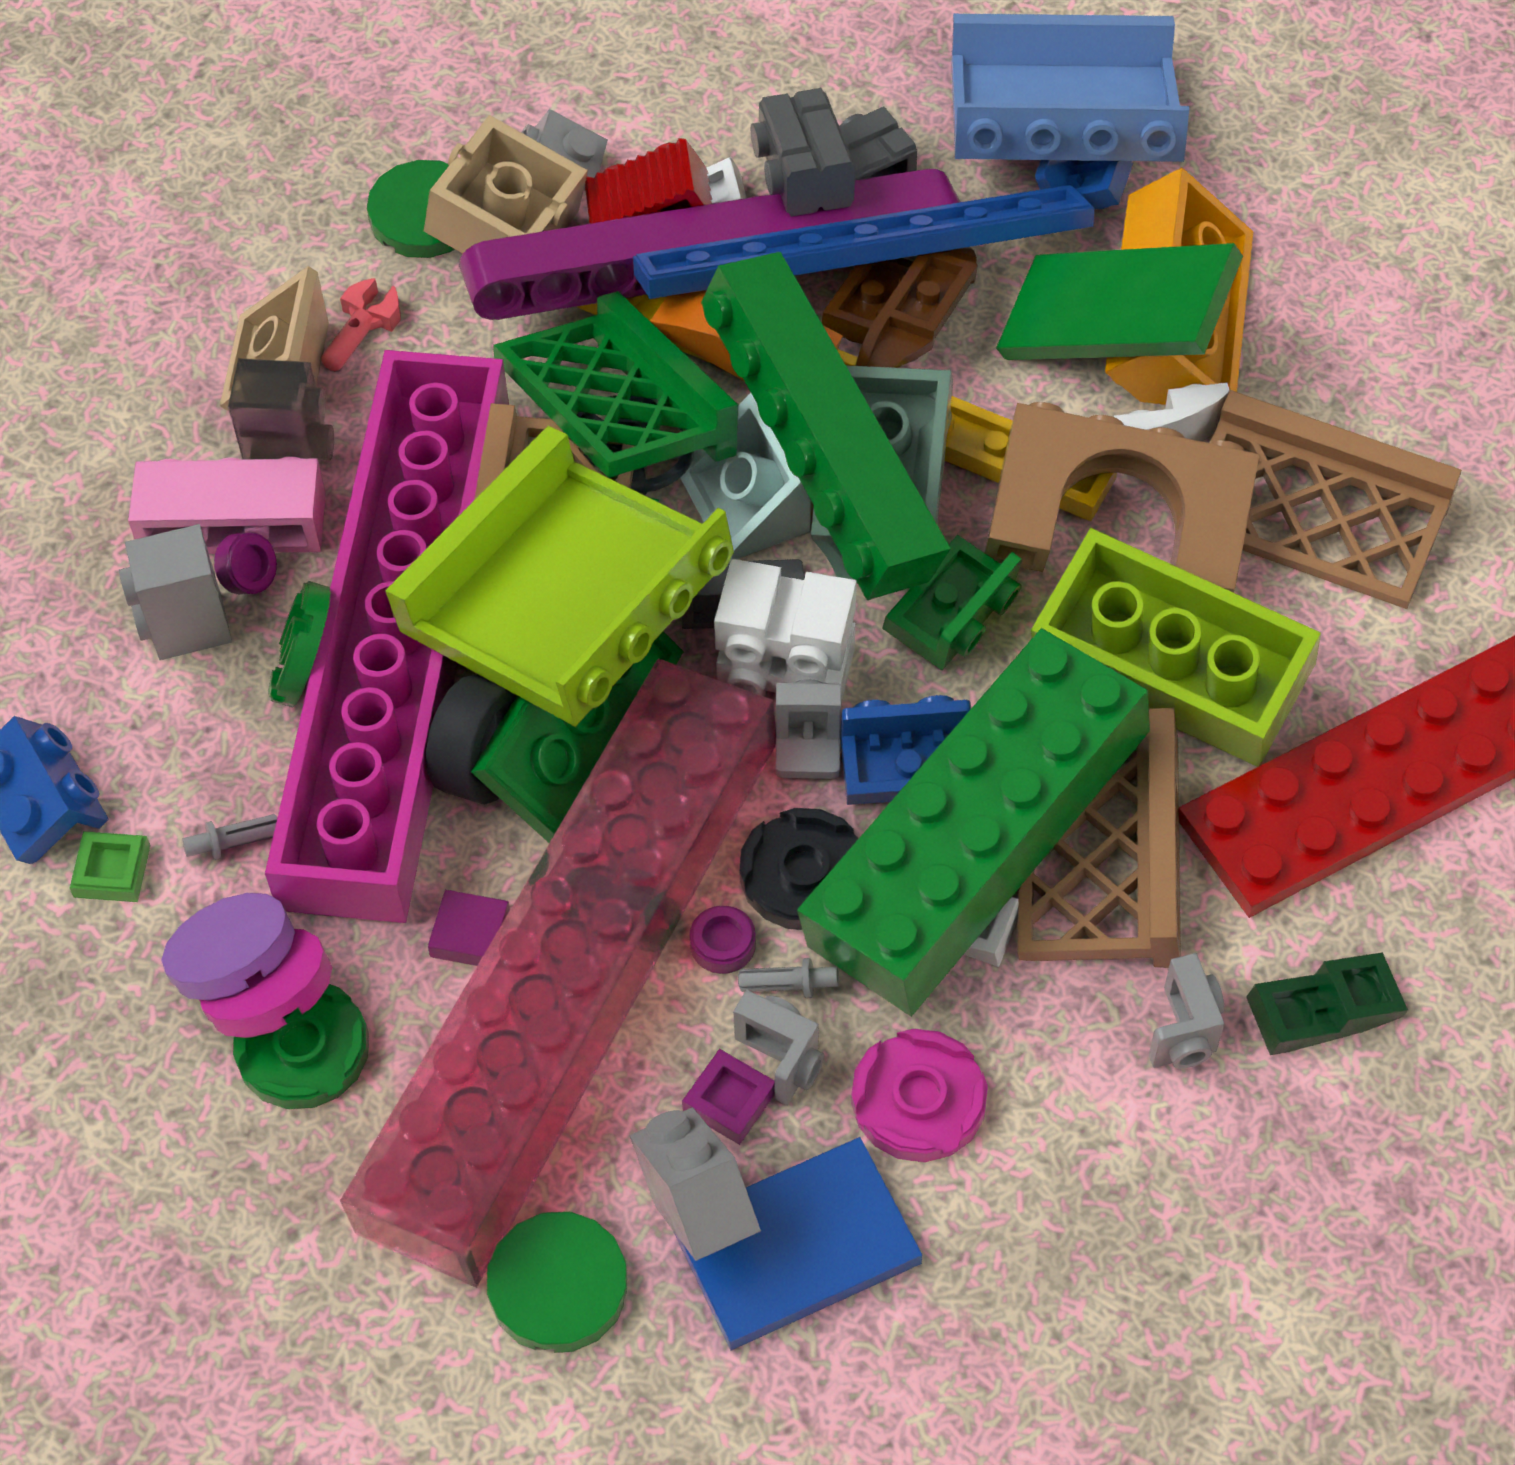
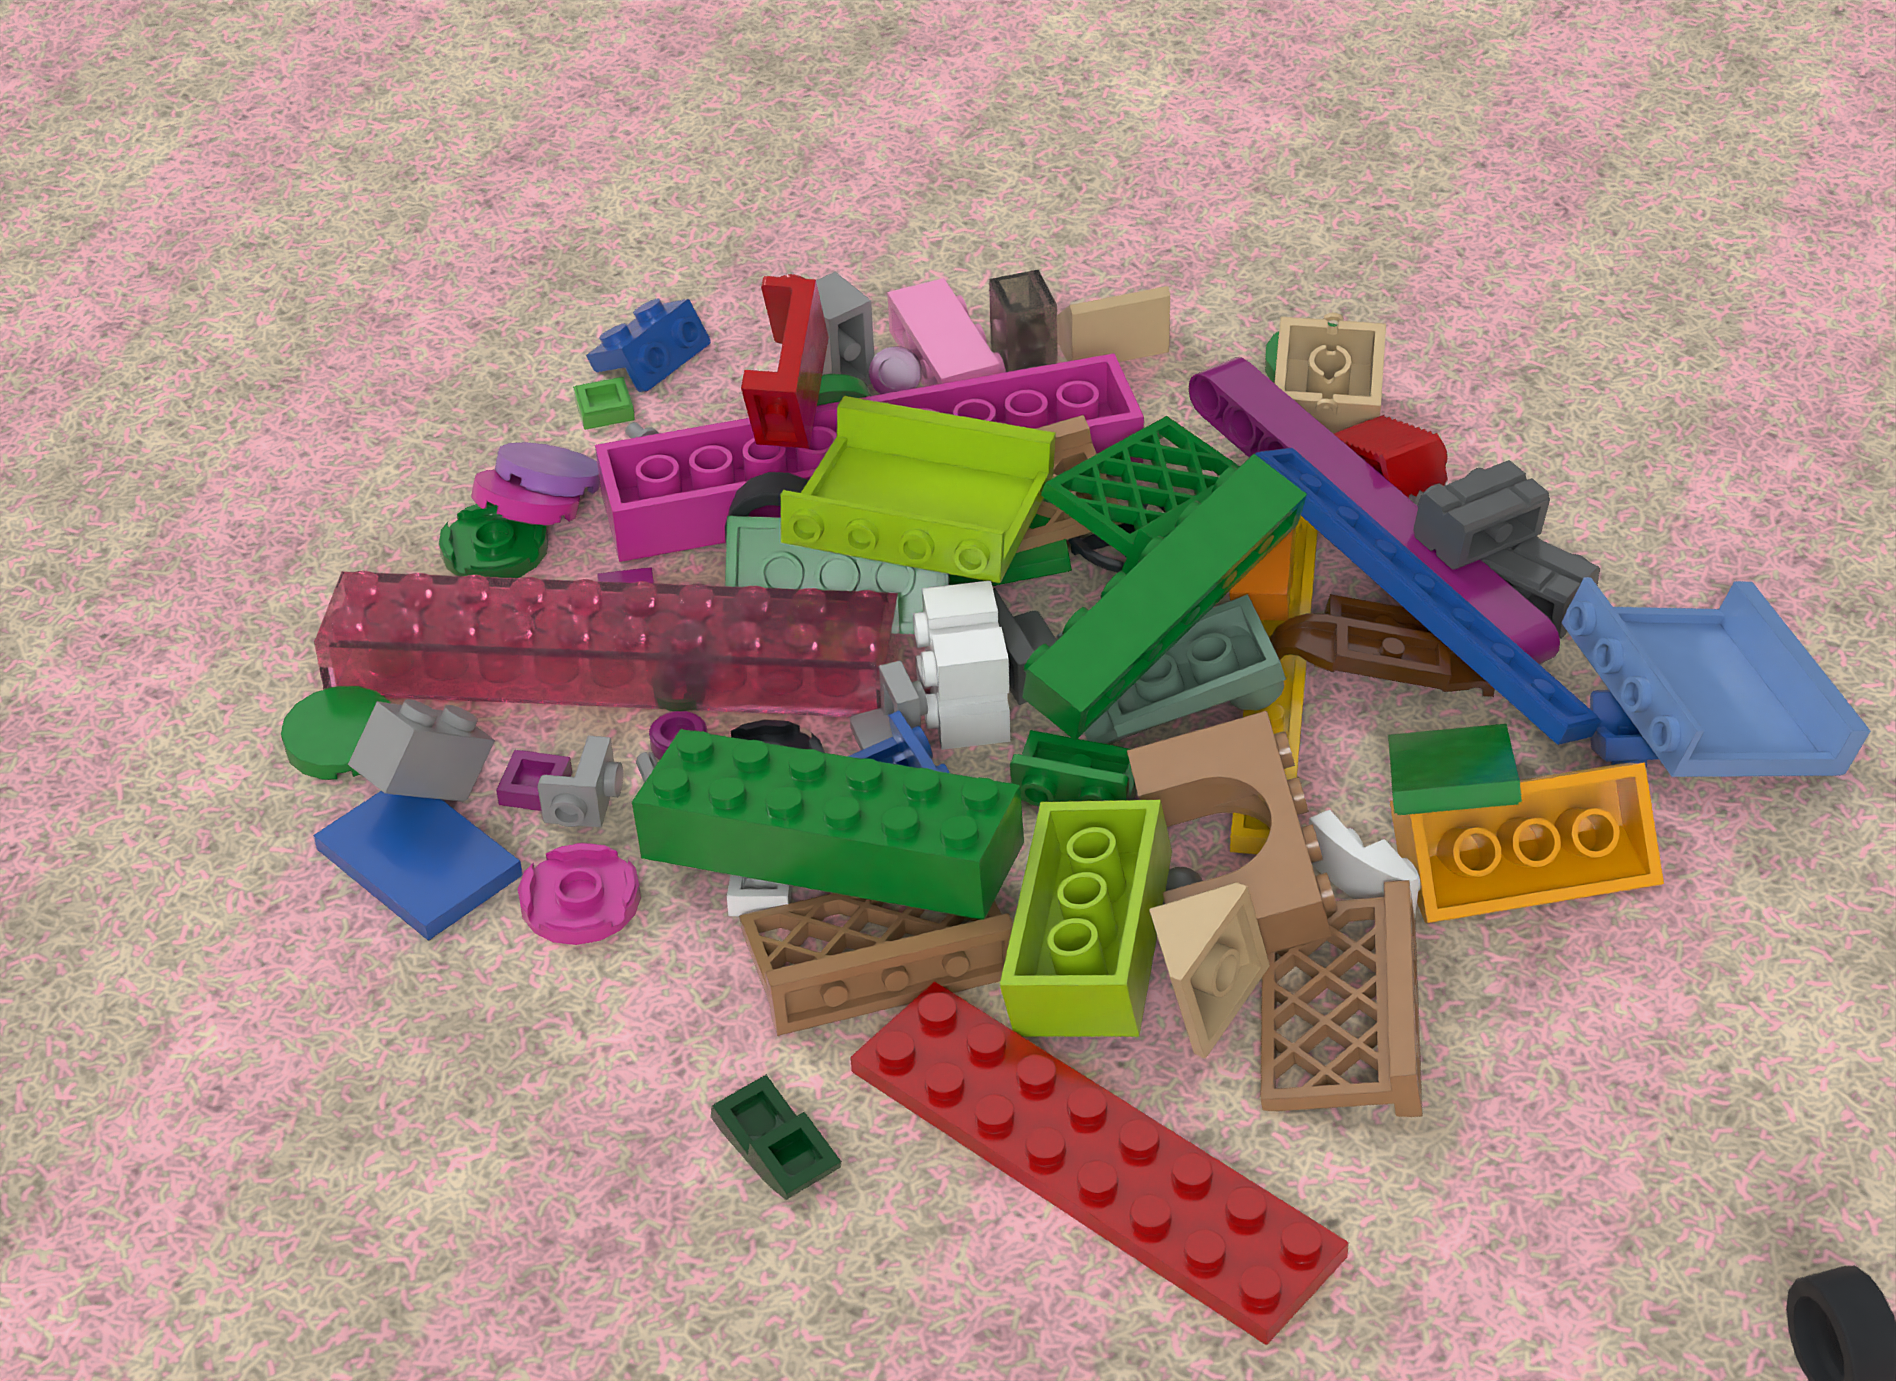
camera: 70 degrees right, 15 degrees down
(323, 606) = (785, 401): none -> red panel
(362, 320) = (1194, 359): coral bar -> none
(569, 140) = (1426, 404): light grey bracket -> none
(1198, 1011) = (716, 1039): light grey bracket -> none
(1288, 570) = (1211, 958): none -> tan slope

